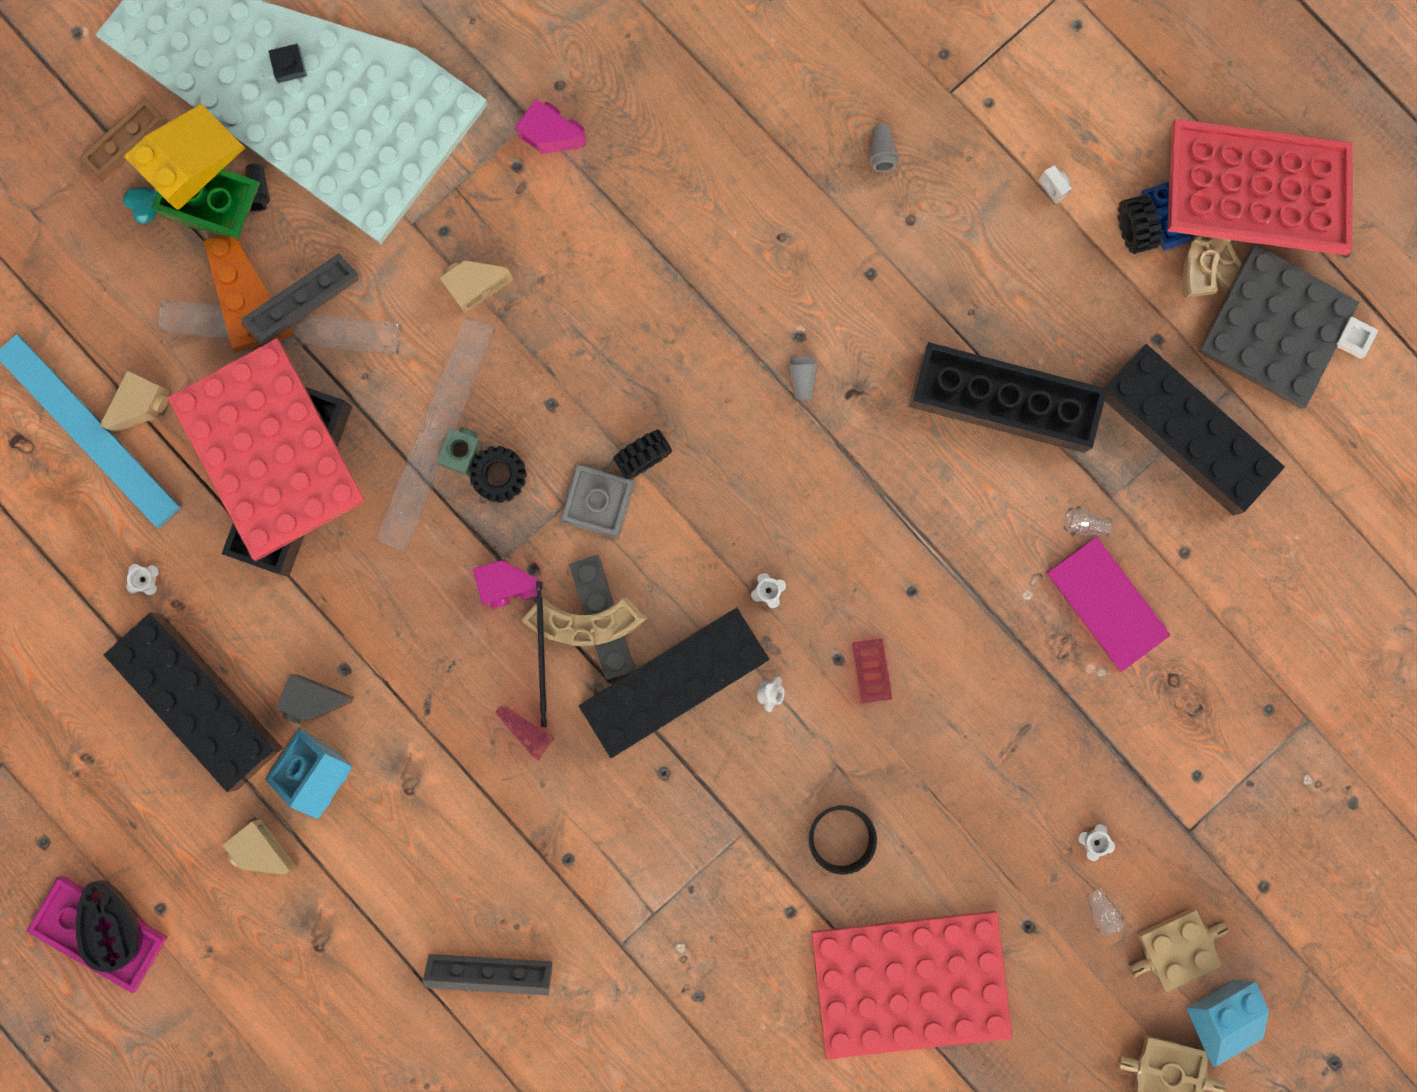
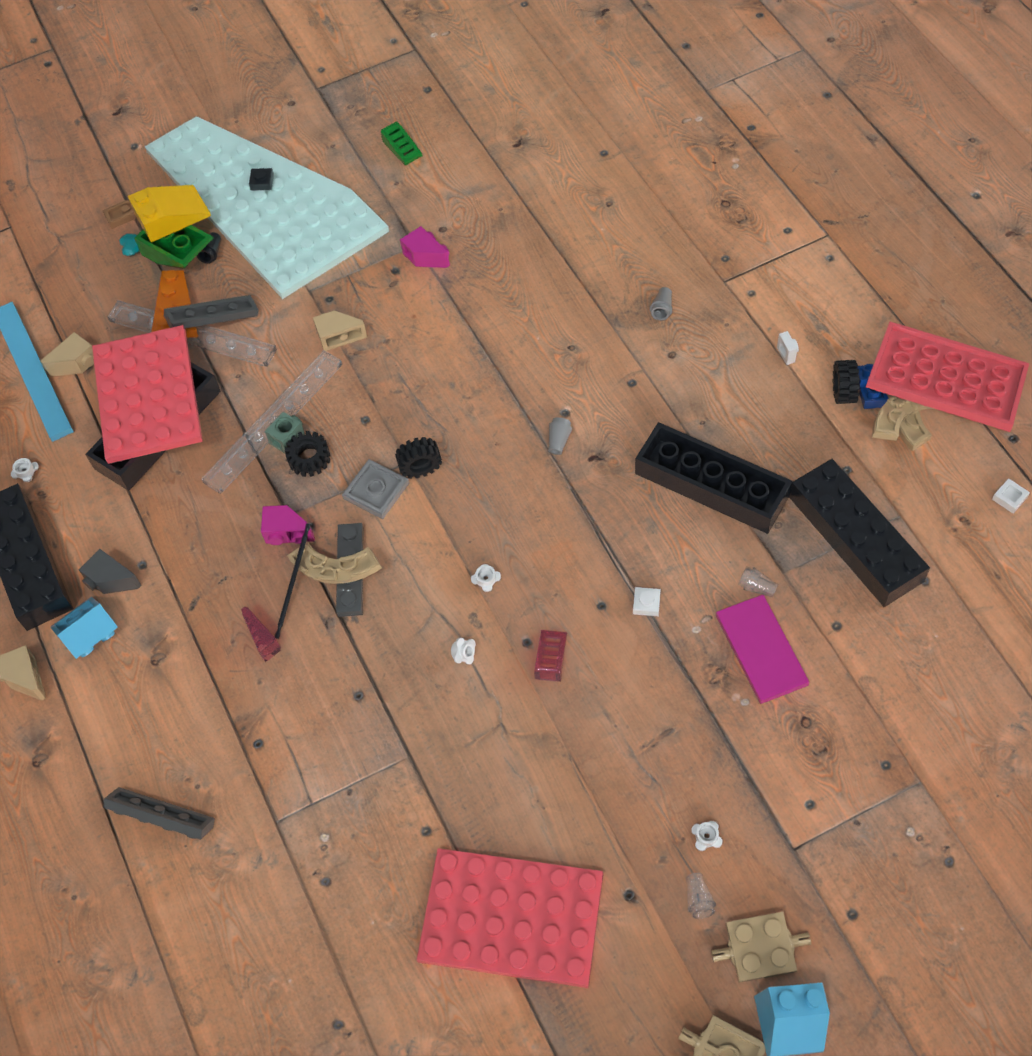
camera: 20 degrees right, 25 degrees down
(673, 682) = (387, 624): black brick -> none
(863, 861) = (480, 753): black tyre -> none
(964, 575) = (646, 601): none -> white plate
(1278, 326) = (946, 476): dark grey plate -> none

